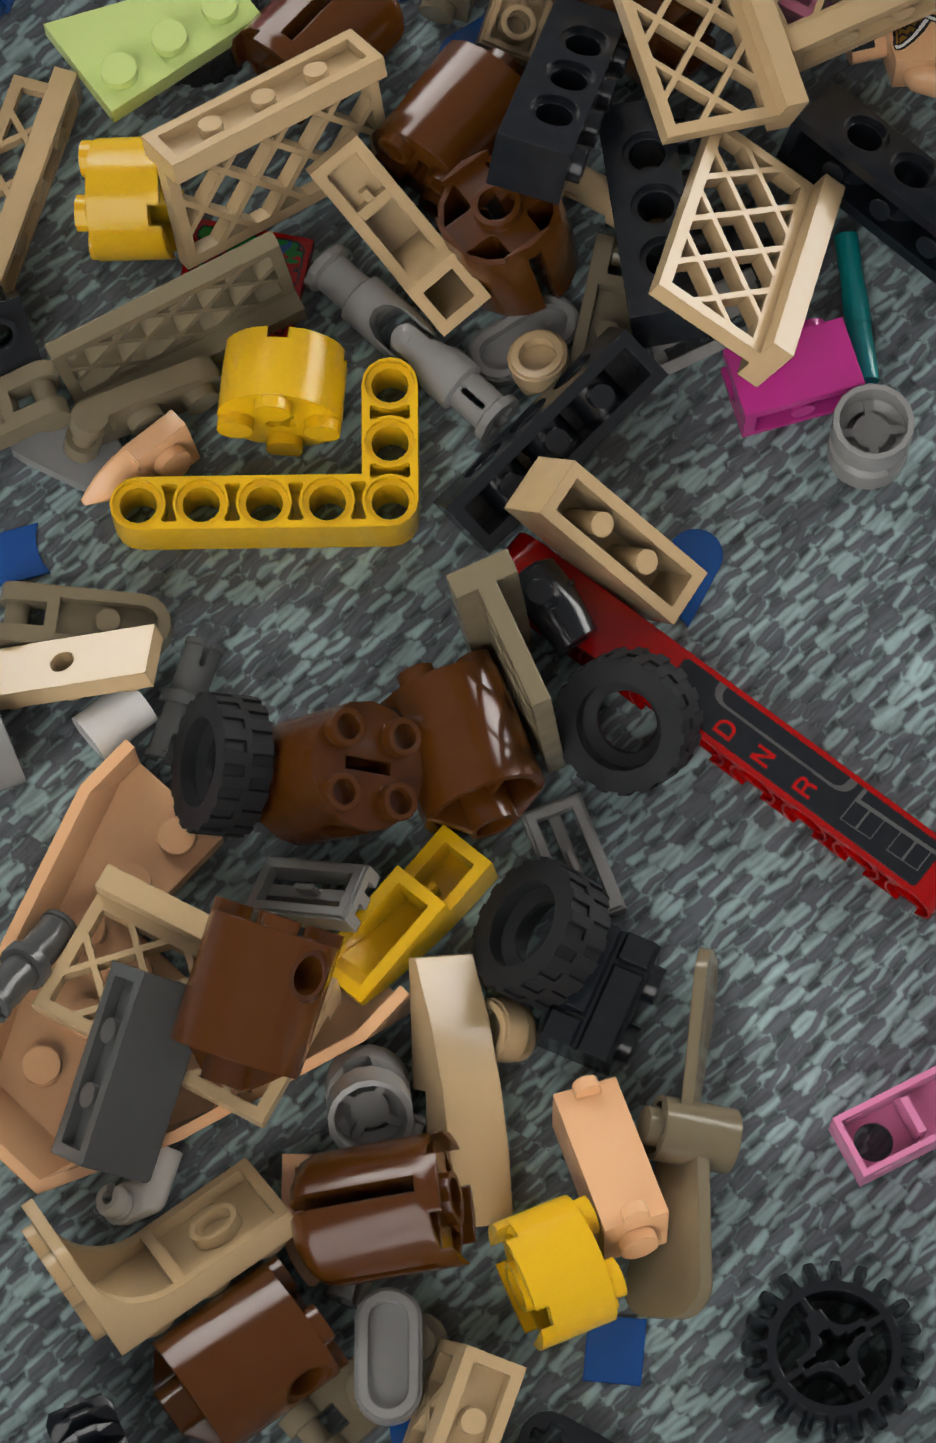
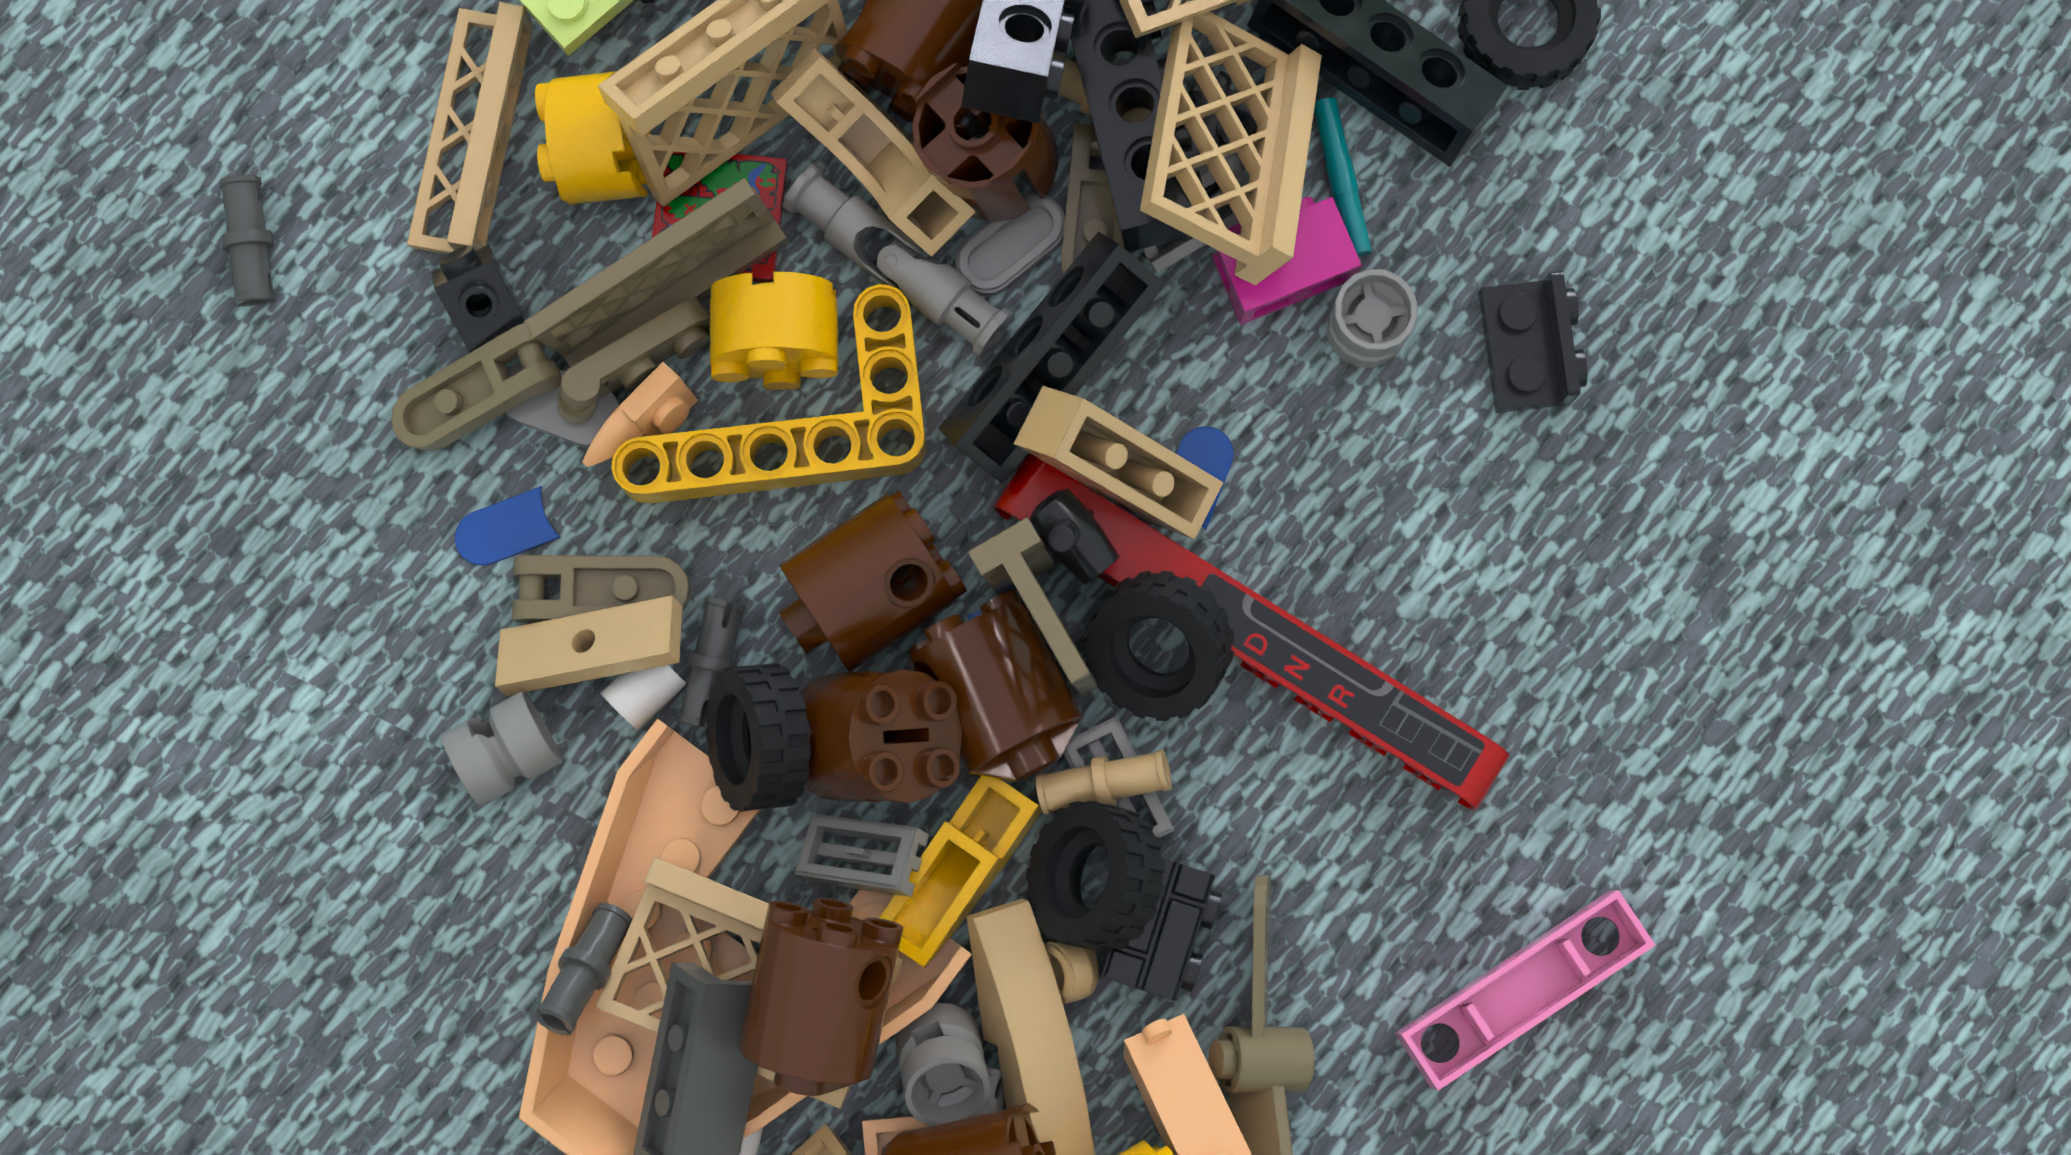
camera: 10 degrees left, 10 degrees up
(325, 636) = (868, 582): none -> reddish brown cylinder
(537, 360) = (1029, 269): tan tile -> none
(568, 845) = (1104, 781): none -> tan pin

